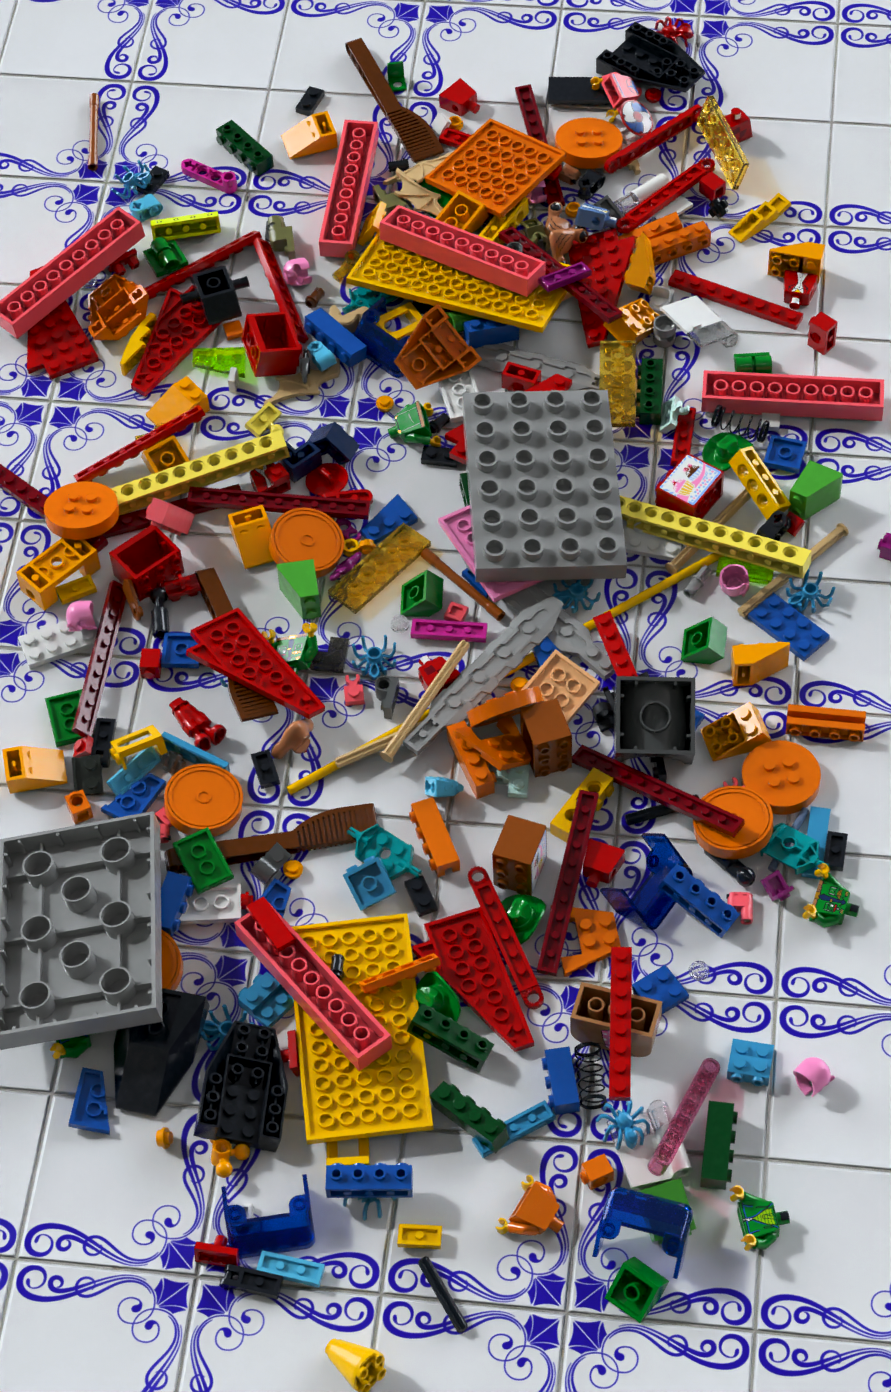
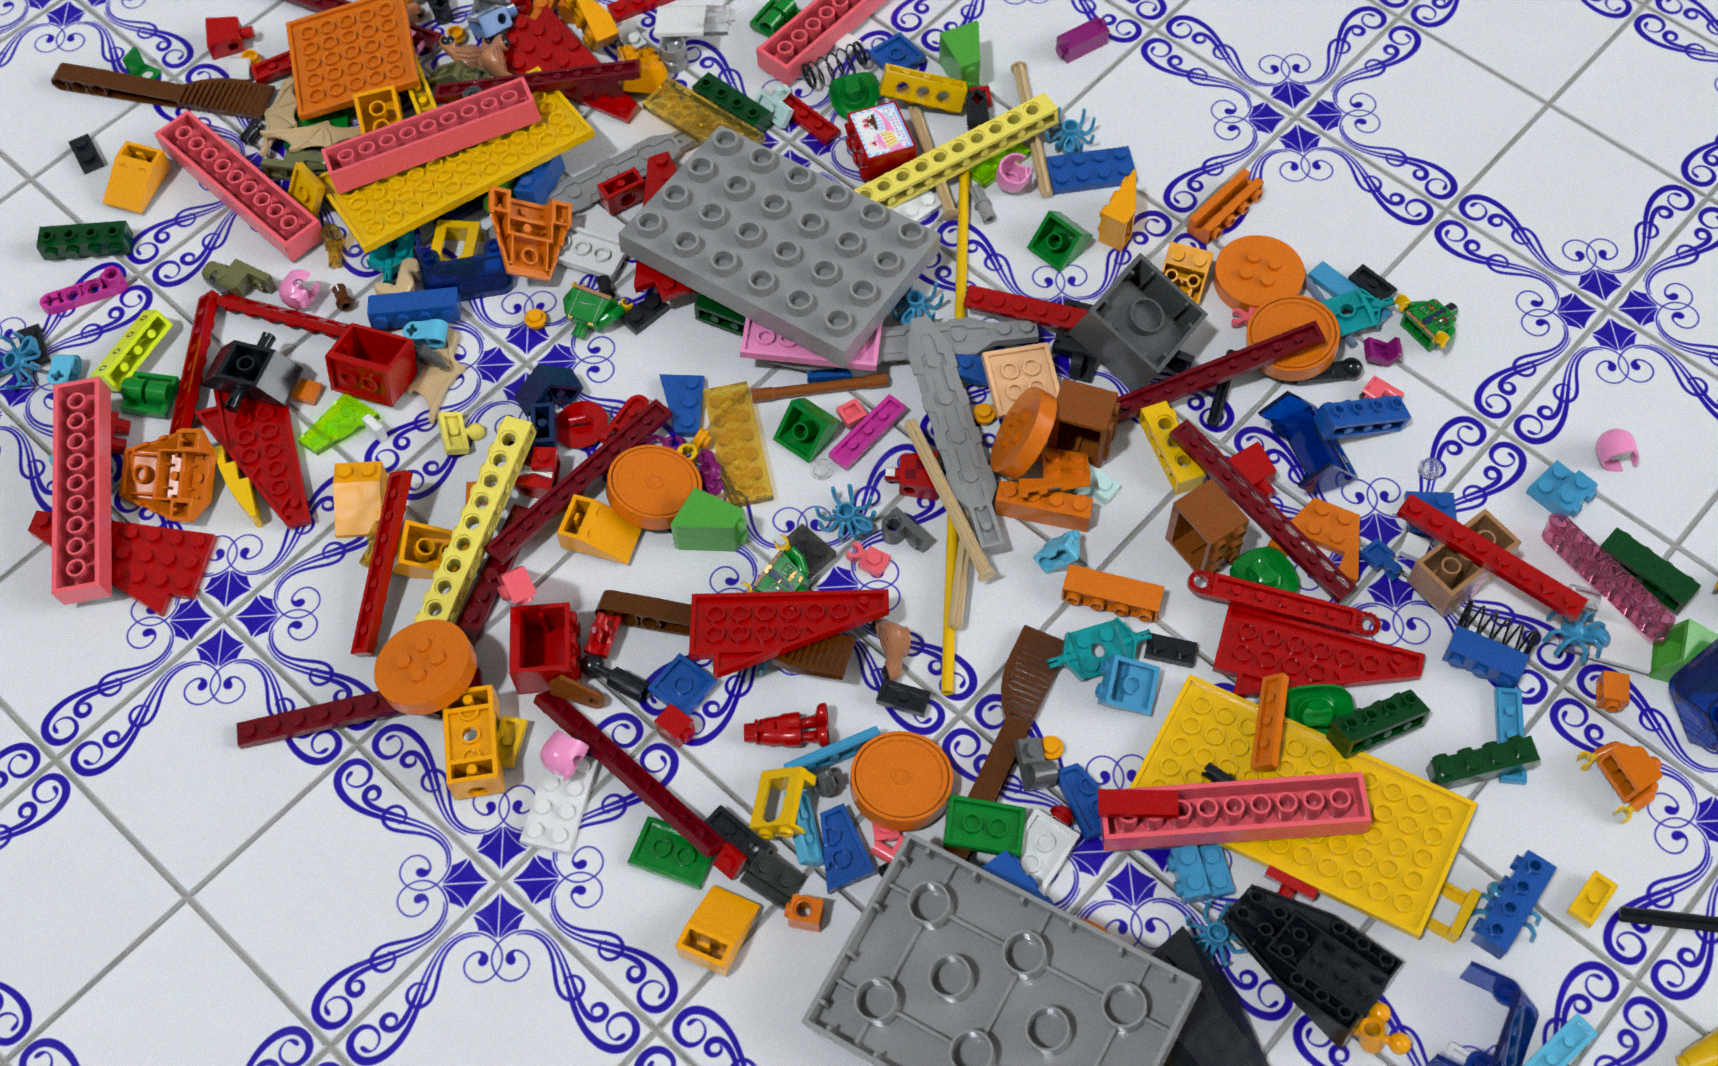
camera: 55 degrees left, 5 degrees up
(564, 276) = (550, 76): magenta tile -> none
(595, 974) = (1381, 556): none -> blue plate

